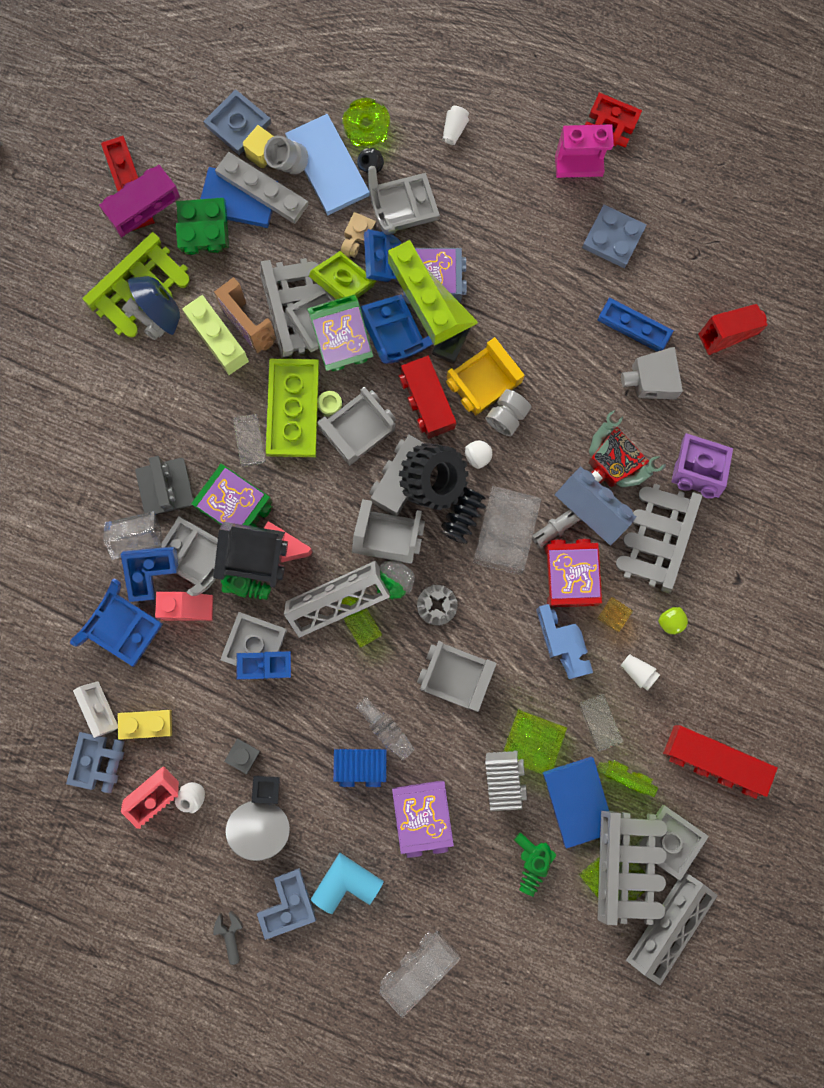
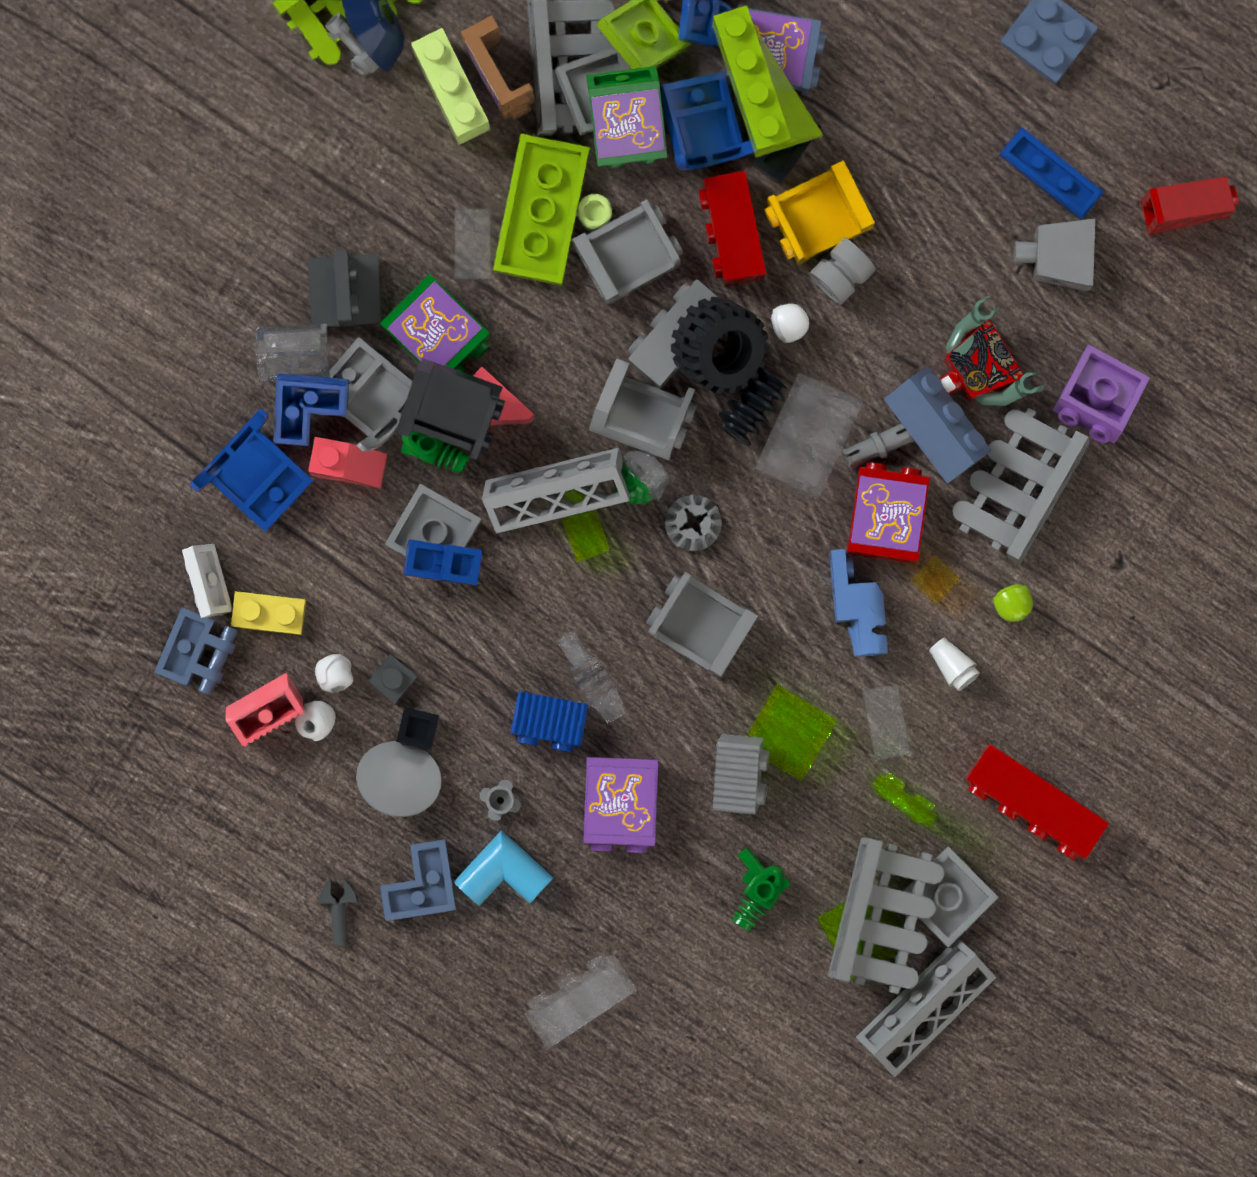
camera: 15 degrees right, 5 degrees up
(198, 760) = (334, 673): none -> white piece
(335, 823) = (490, 797): none -> light grey plate
(577, 800) = (831, 818): blue tile -> none

